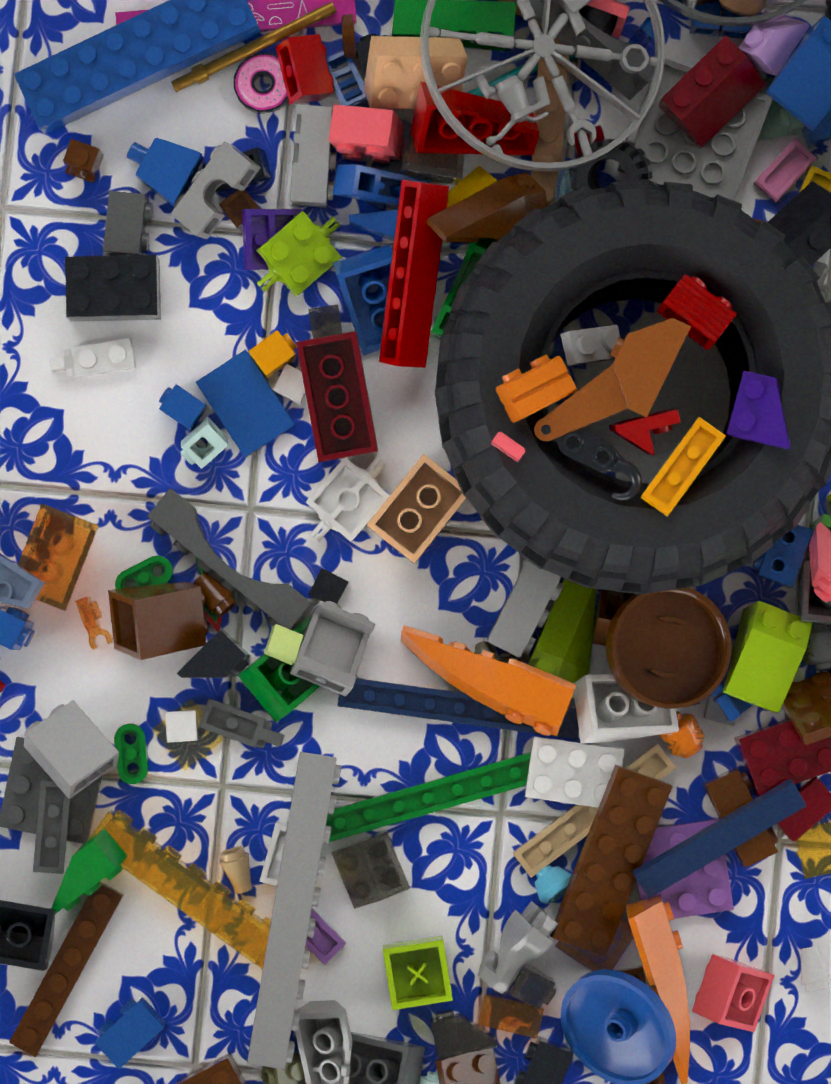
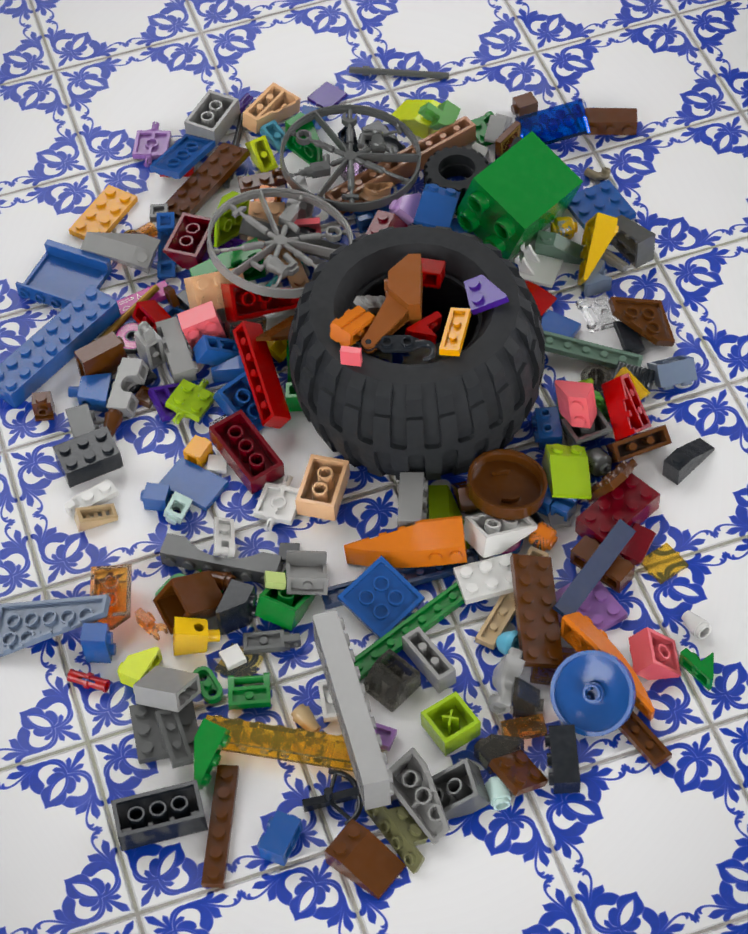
camera: 20 degrees left, 35 degrees down
(49, 686) = (138, 665): none -> neon yellow slope
(64, 382) = (85, 522): none -> tan slope
(128, 670) = (192, 635): none -> yellow torso
(170, 238) = (112, 420): none -> reddish brown cone
(178, 797) = (249, 696): none -> green plate
(197, 117) = (101, 355): none -> reddish brown brick
(219, 1001) = (332, 799): none -> black piece
(247, 527) = (224, 537): none -> white plate
(275, 128) = (149, 346): none -> light grey brick
(415, 735) = (381, 597): none -> blue plate
(434, 862) = (429, 659): none -> light grey brick
(784, 1046) = (700, 670): none -> green slope

